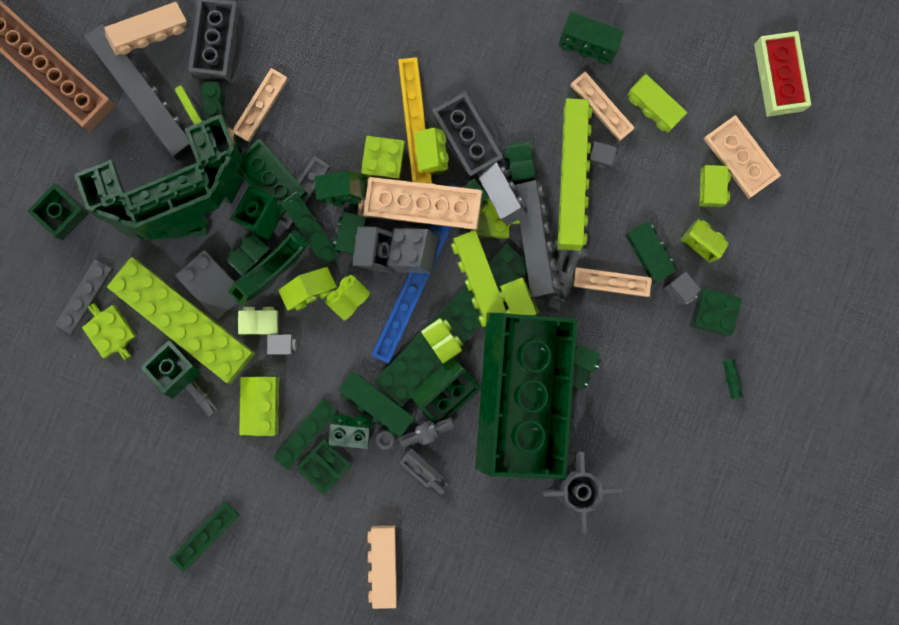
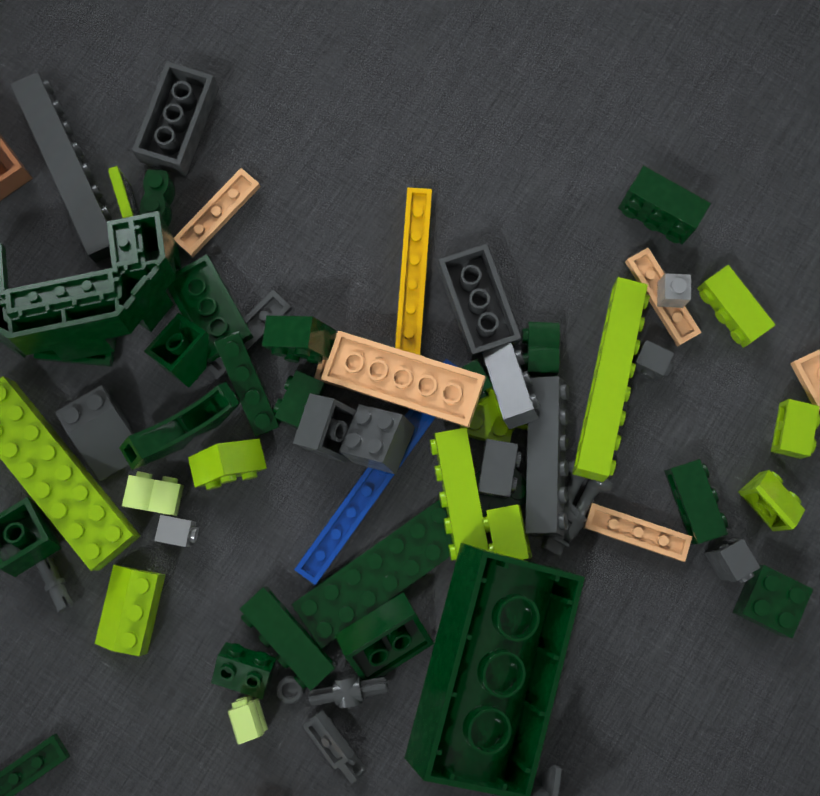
camera: 10 degrees right, 5 degrees down
(145, 28) = (90, 88): light nougat brick -> none
(248, 255) = (159, 402): dark green brick -> none
(305, 434) = (183, 660): dark green plate -> none
(323, 467) = (197, 711): dark green slope -> none
(347, 297) = (277, 484): lime brick -> none
(359, 463) = (247, 719): none -> yellowish green brick
(383, 158) = (362, 309): lime brick -> none
(431, 151) = (427, 312): lime slope -> none
(442, 341) = (393, 569): lime brick -> none
(503, 255) = (497, 468): none -> dark grey brick
(585, 362) = (584, 638): dark green brick -> none
(608, 101) = (674, 290): none -> light grey brick
(733, 379) = (781, 698): dark green pin -> none

